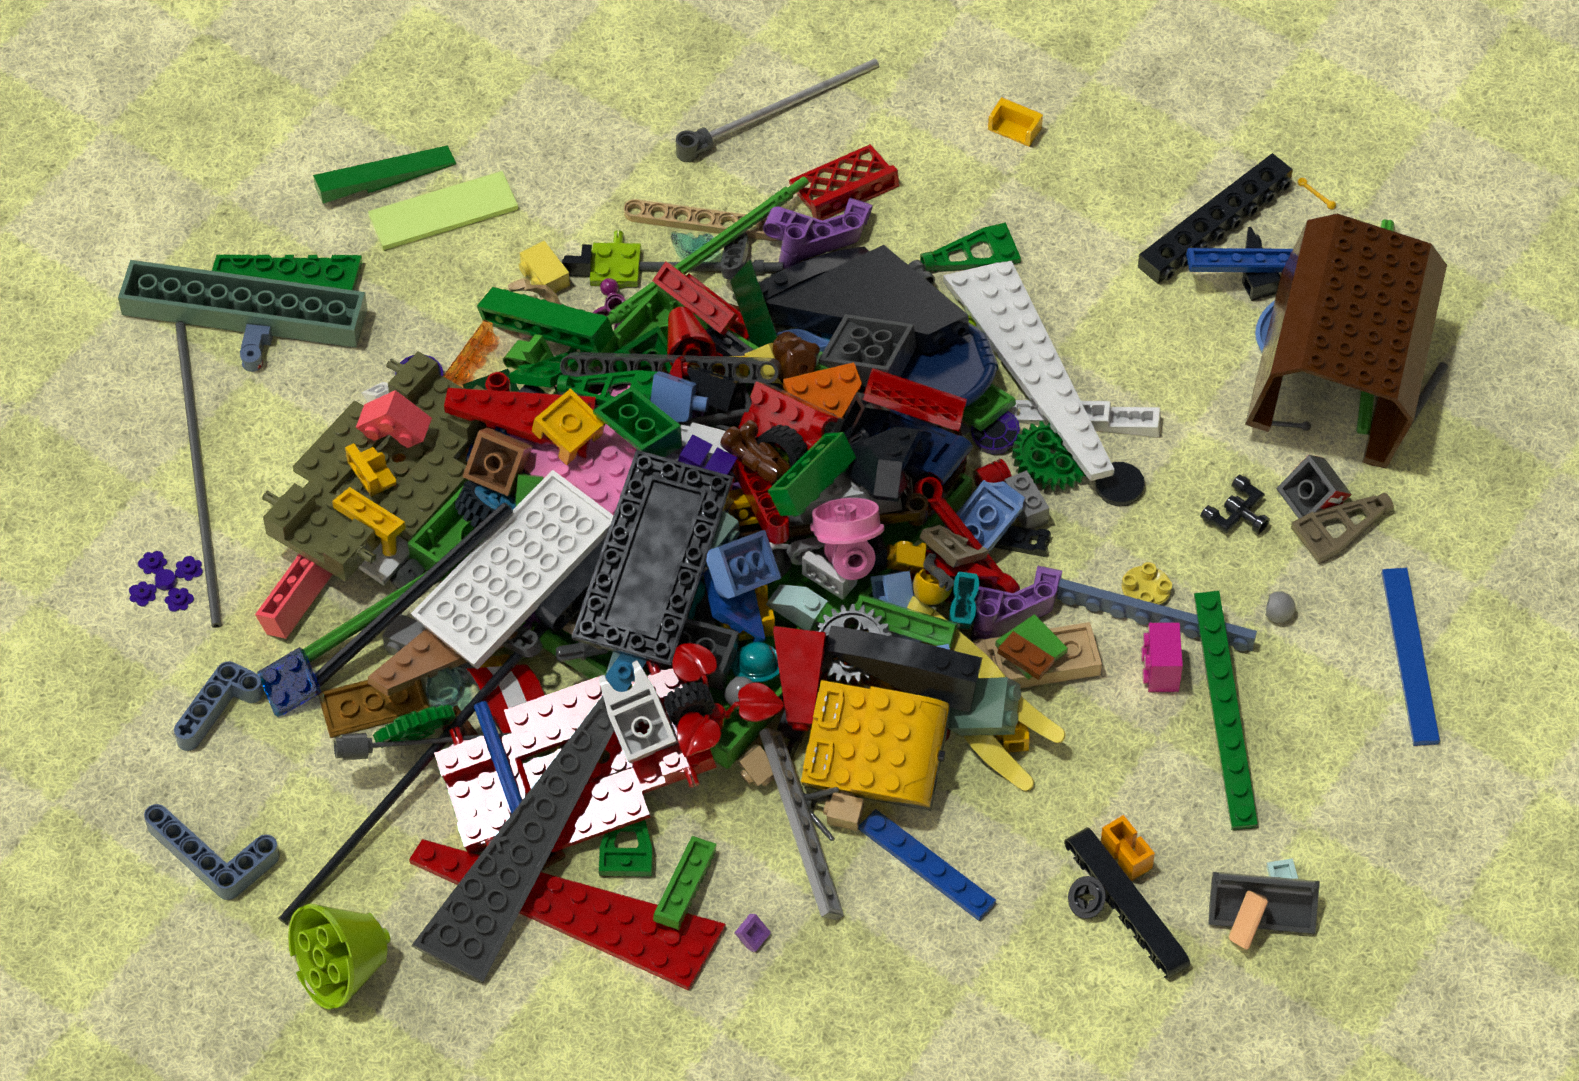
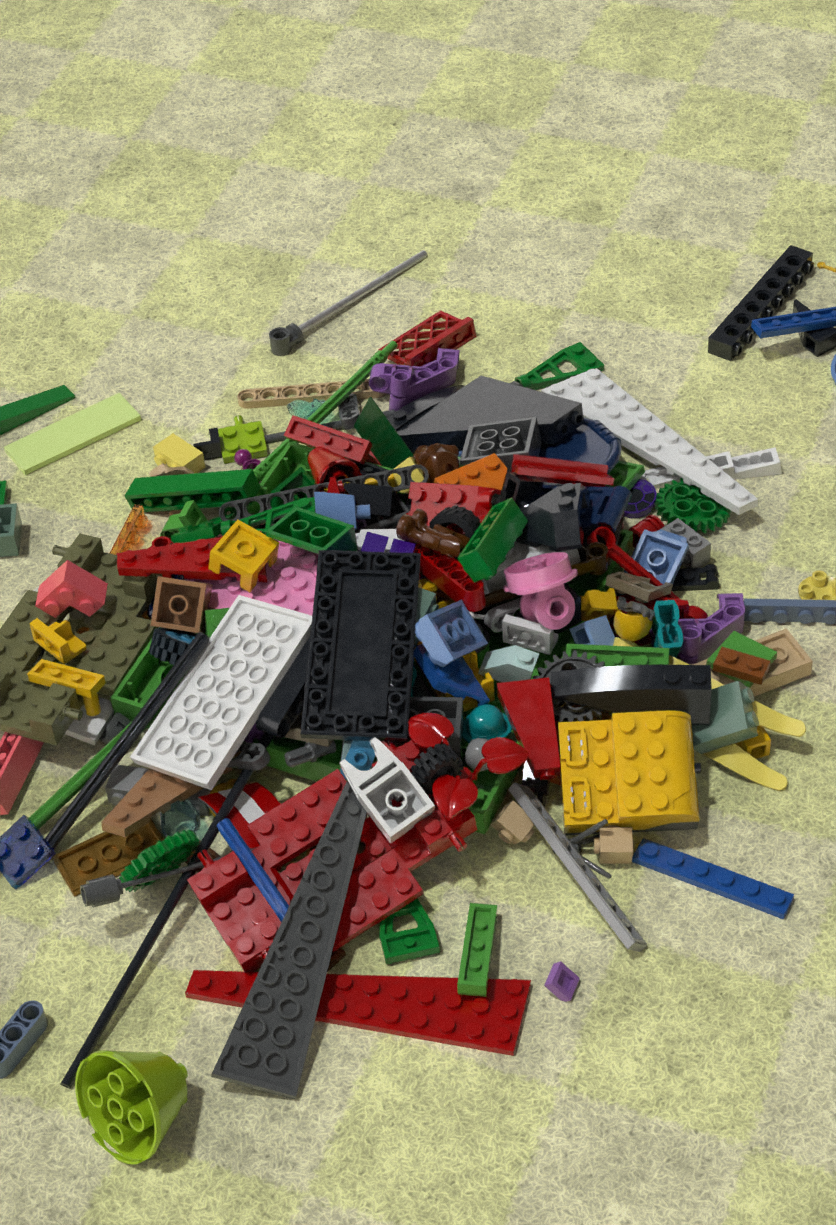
camera: 10 degrees left, 10 degrees down
(1015, 121) = (560, 269): yellow panel -> none
(1122, 487) = (765, 518): black tile -> none

